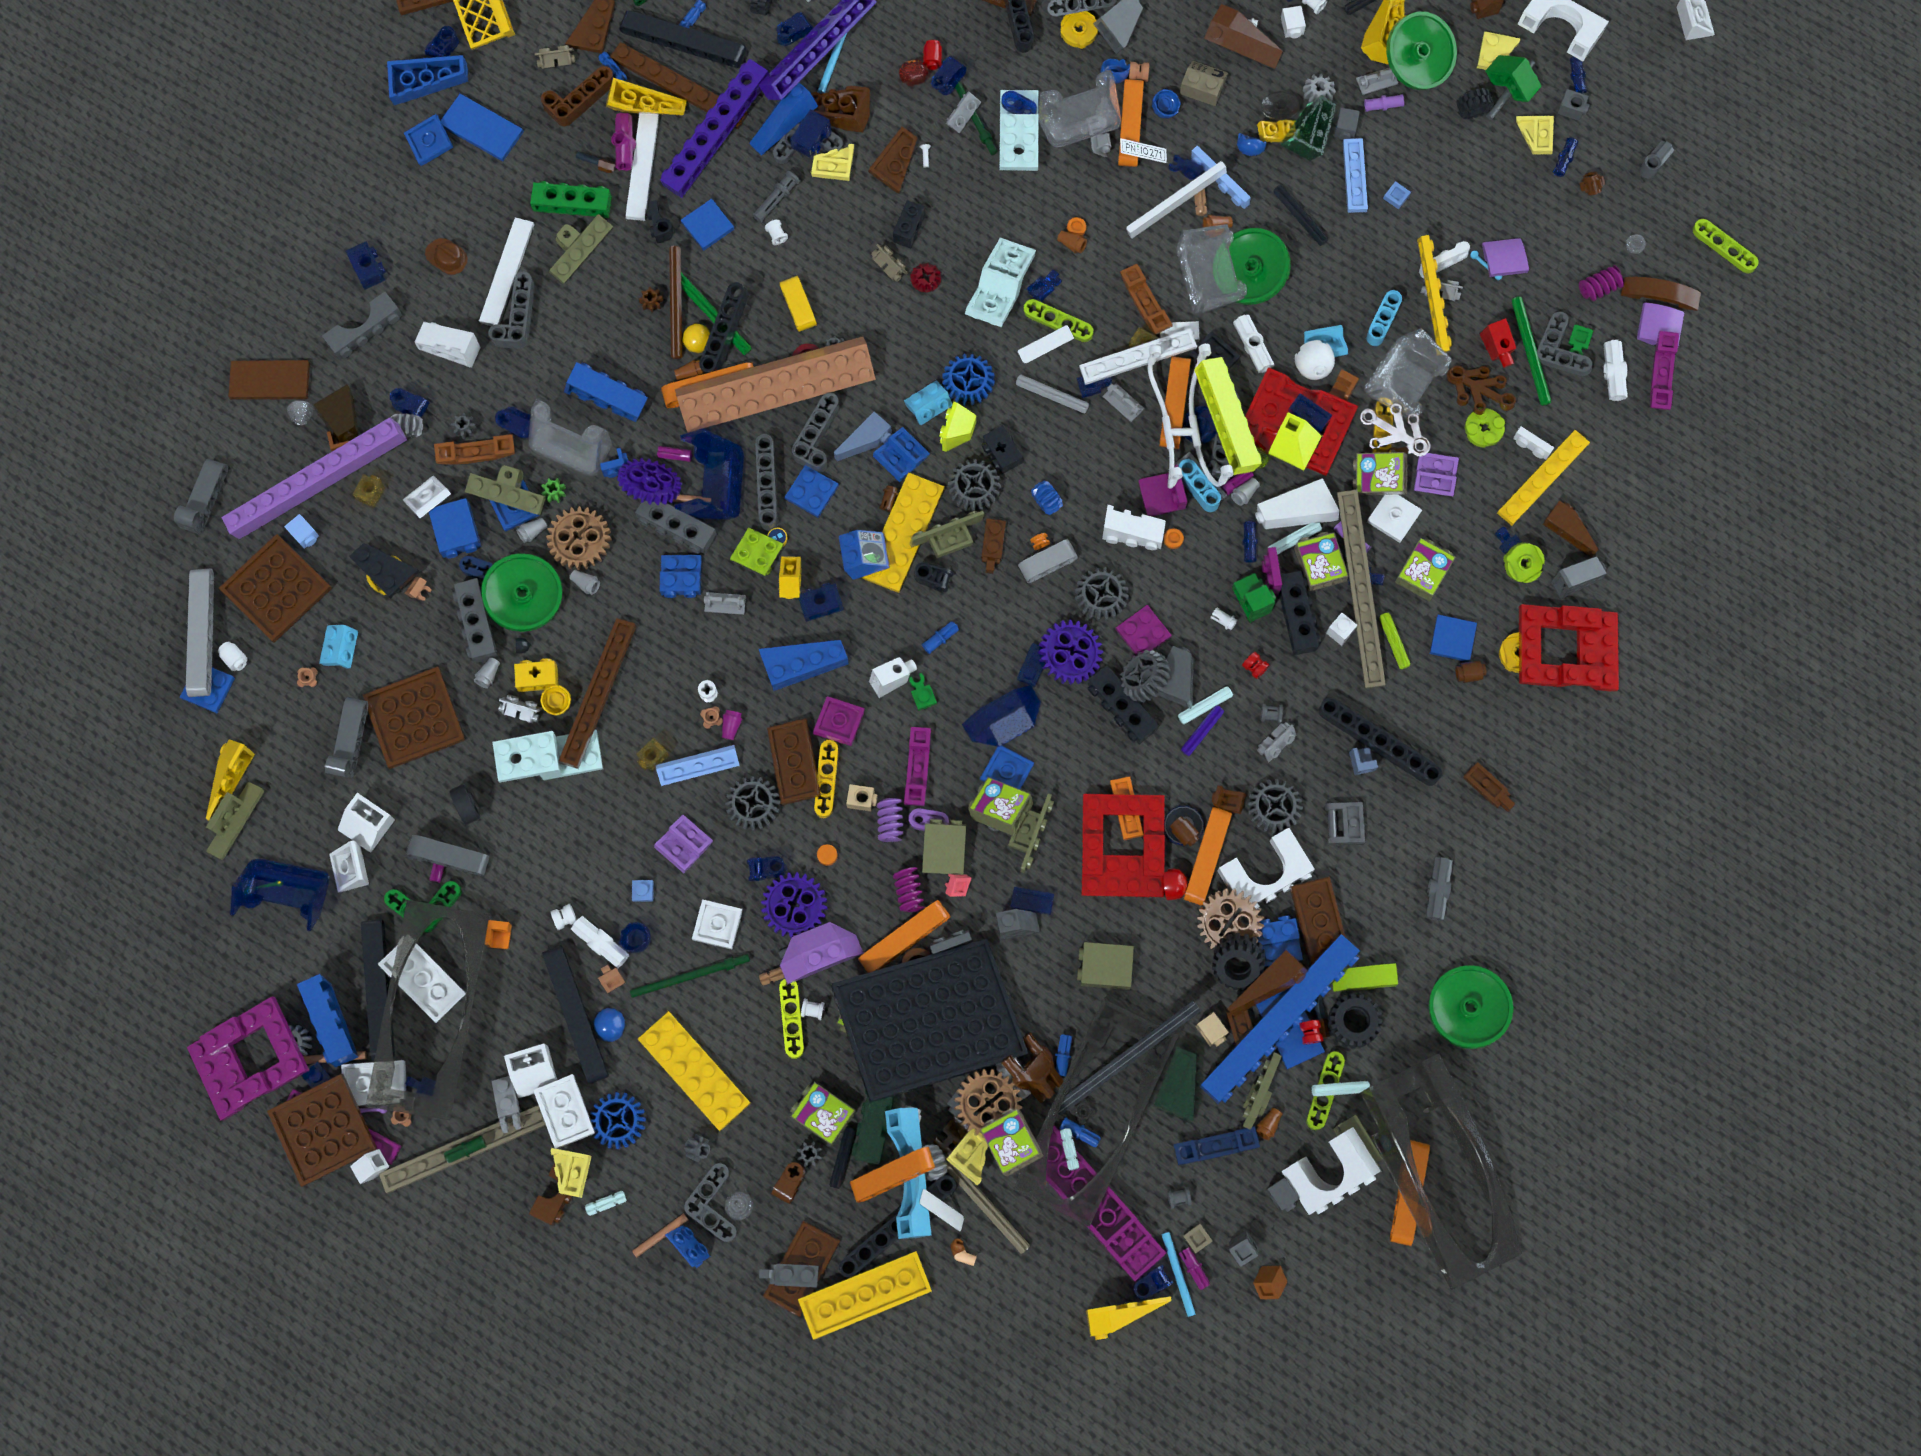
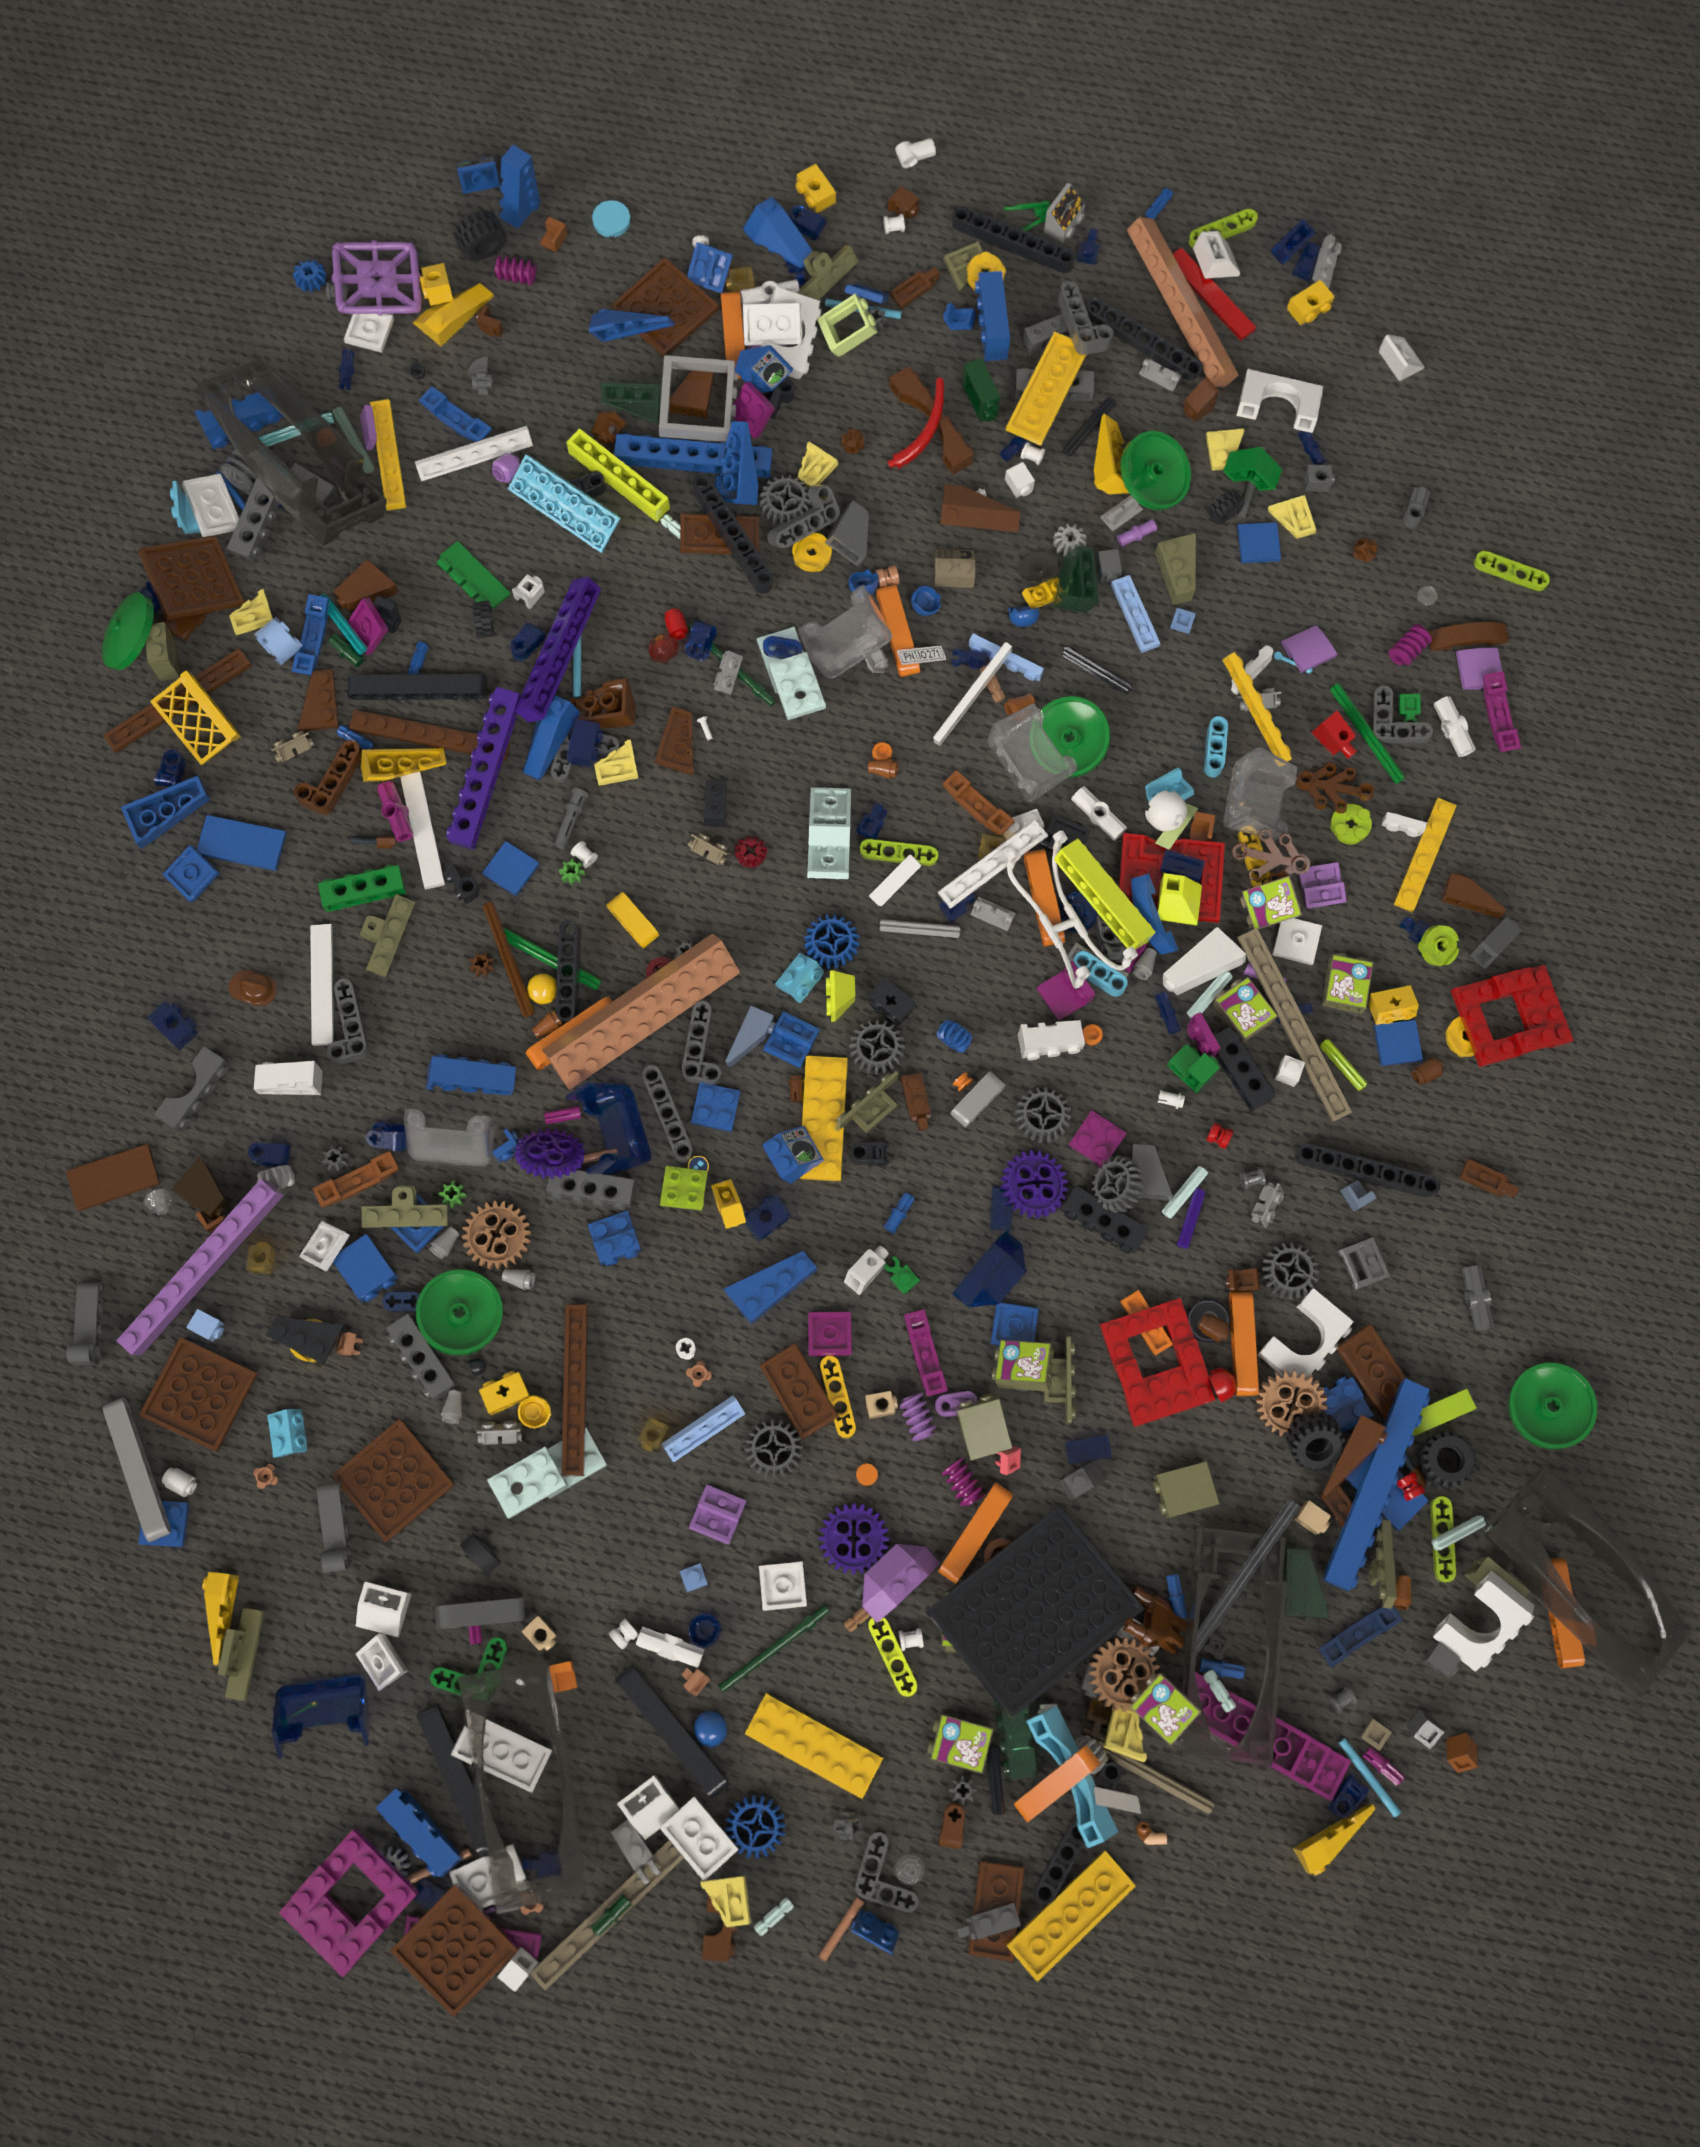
camera: 25 degrees left, 0 degrees up
(486, 885) = (531, 1630): none -> tan brick
(724, 603) = (670, 1251): light grey hinge -> none
(731, 723) = (721, 1374): magenta cone -> none
(759, 238) = (569, 876): none -> bright green gear
(764, 868) = (809, 1511): clear blue piece -> none
(945, 943) = (1025, 1521): dark grey plate -> none
(1261, 432) = (1142, 890): none -> blue slope
(1309, 386) = (1168, 838): none -> yellowish green sticker
(1410, 143) = (1178, 566): none -> olive wedge
(1460, 602) = (1393, 1005): none -> yellow brick
(1495, 147) = (1258, 542): none -> blue tile
(1561, 166) = (1329, 531): clear blue pin -> none

